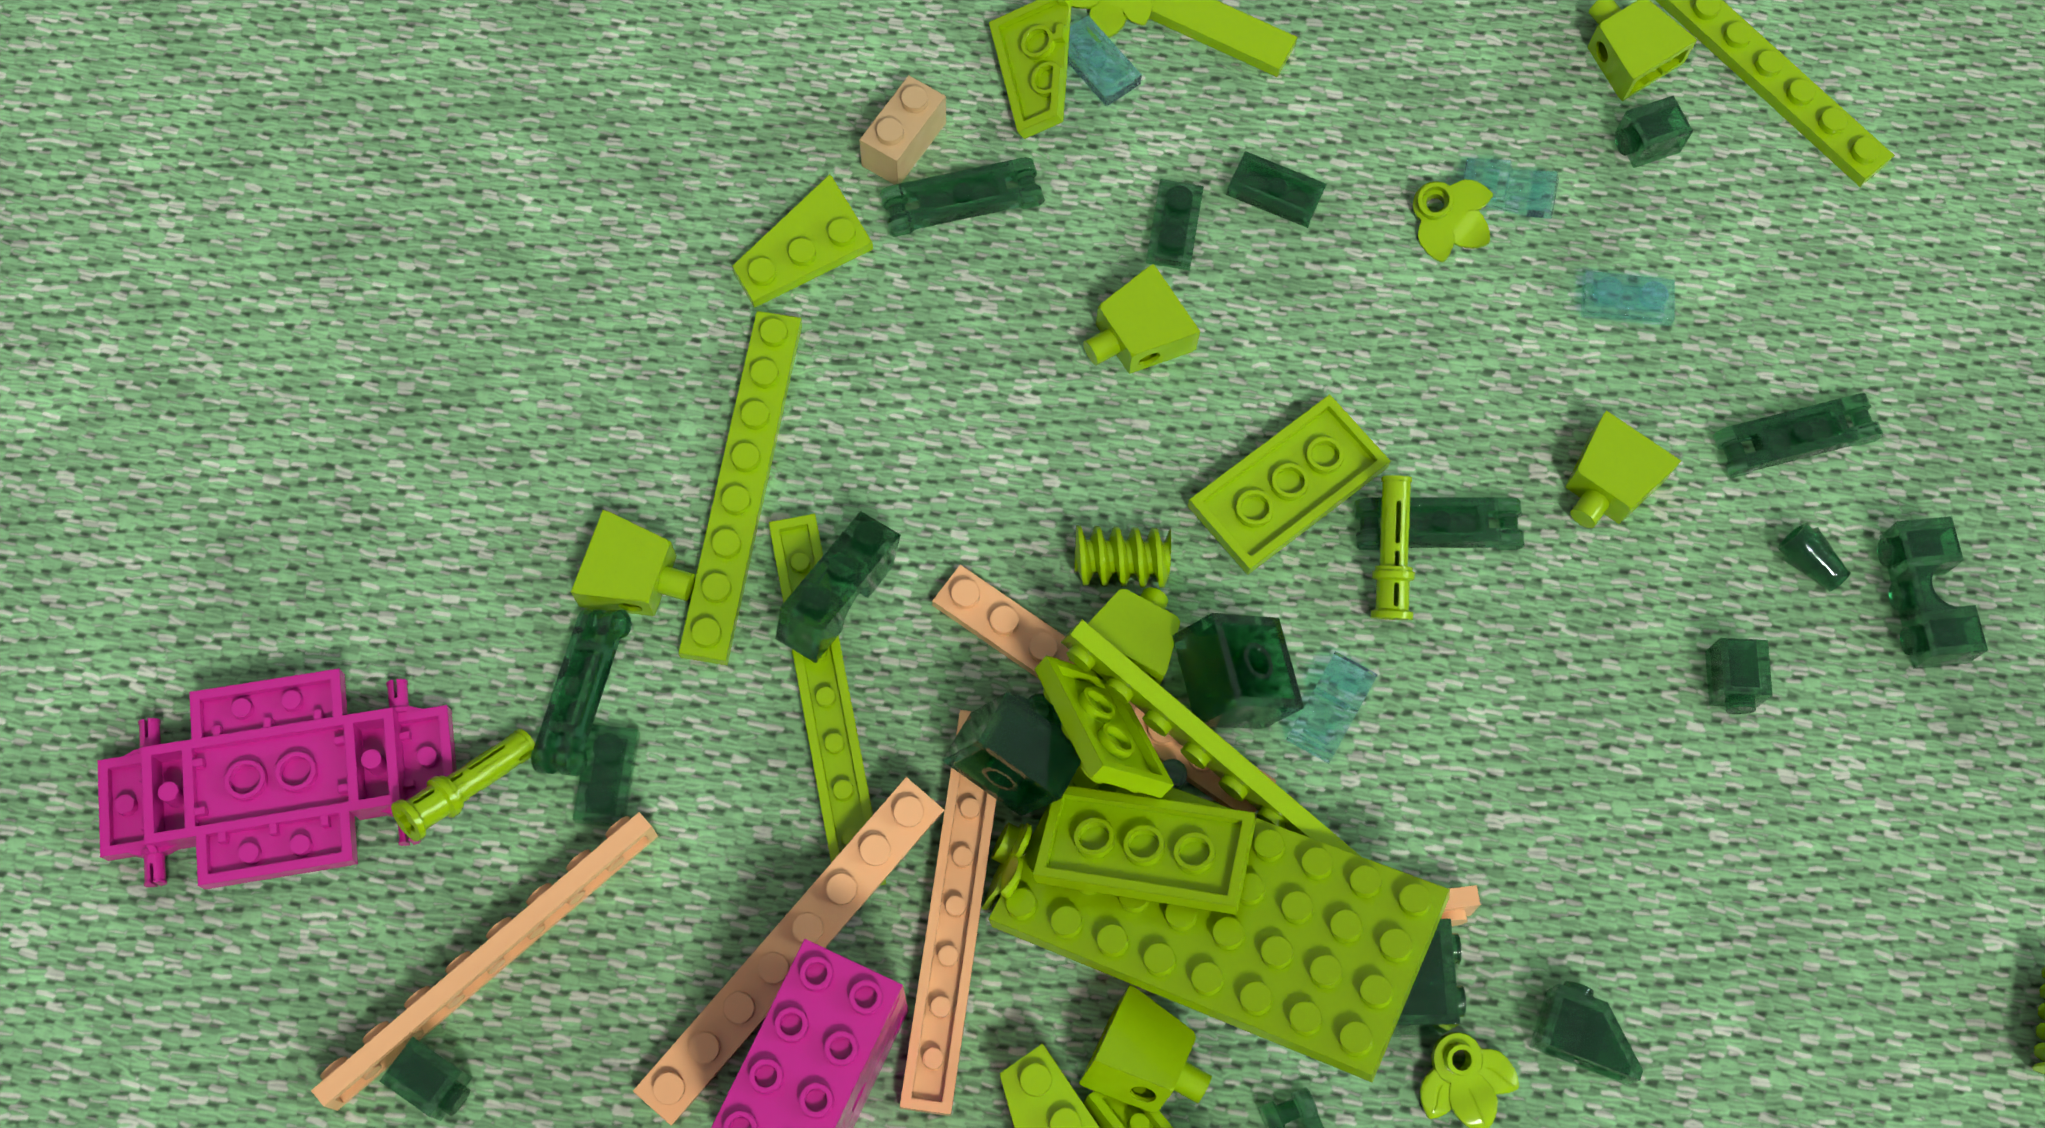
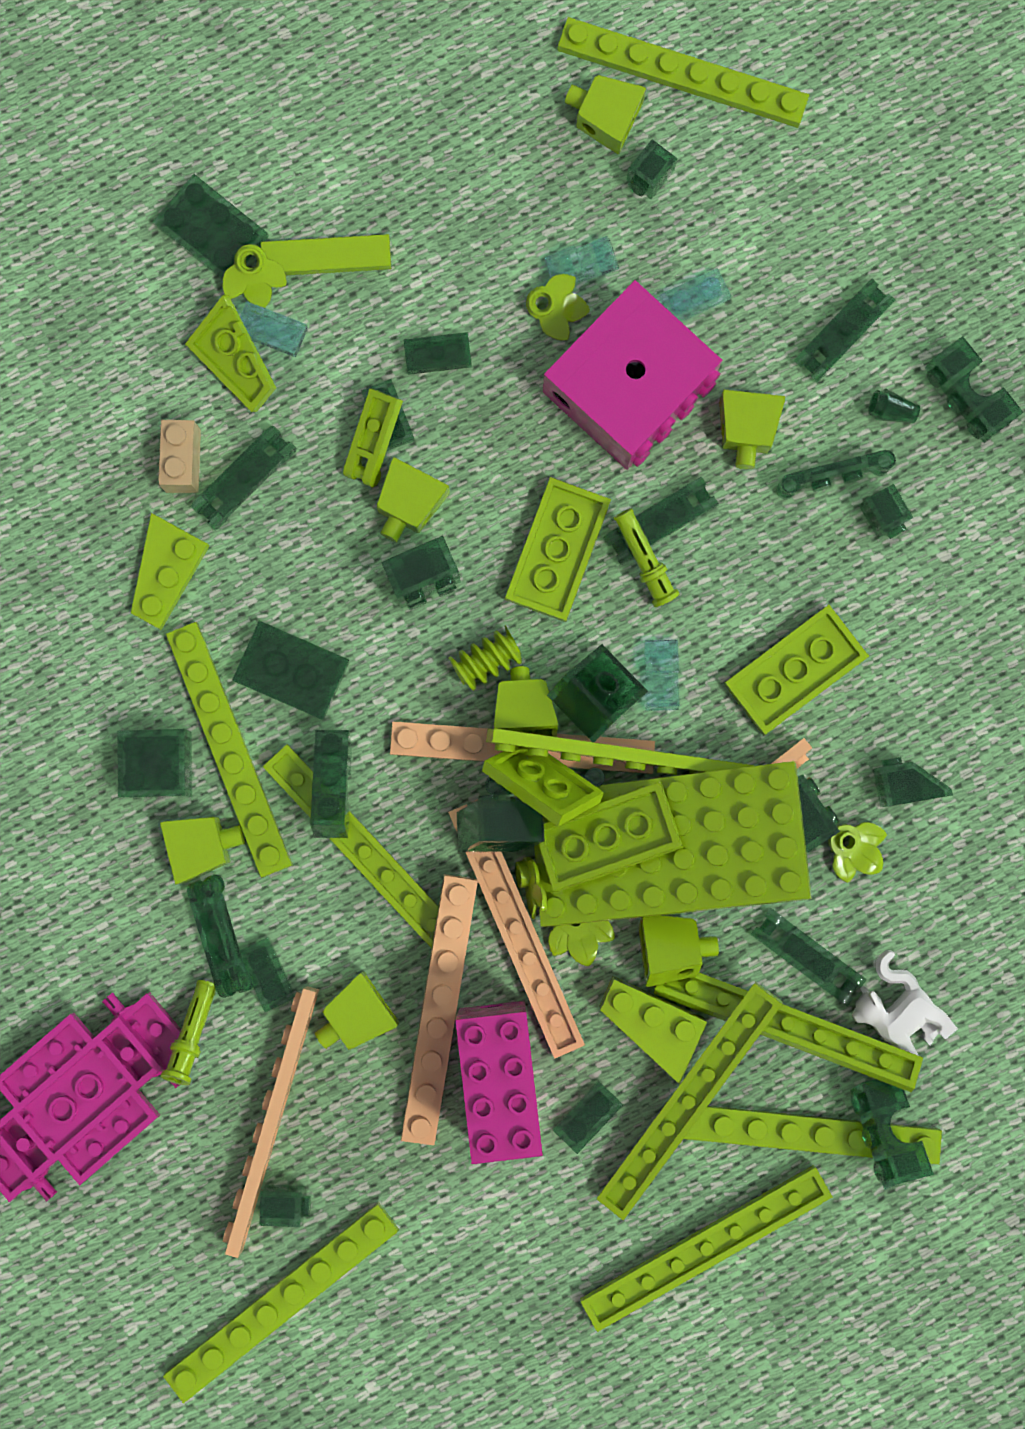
camera: 30 degrees left, 15 degrees up
(643, 444) = (154, 763): none -> clear green brick
(683, 891) = (356, 1015): none -> lime torso
(876, 436) = (291, 670): none -> clear green plate
(1030, 973) = (580, 940): none -> lime plate
(1106, 408) = (422, 573): none -> clear green brick
(1141, 231) = (372, 437): none -> lime plate
(1499, 333) = (632, 376): none -> dark pink gear
(1512, 800) = (796, 670): none -> lime plate
(1711, 593) = (849, 470): none -> clear green plate

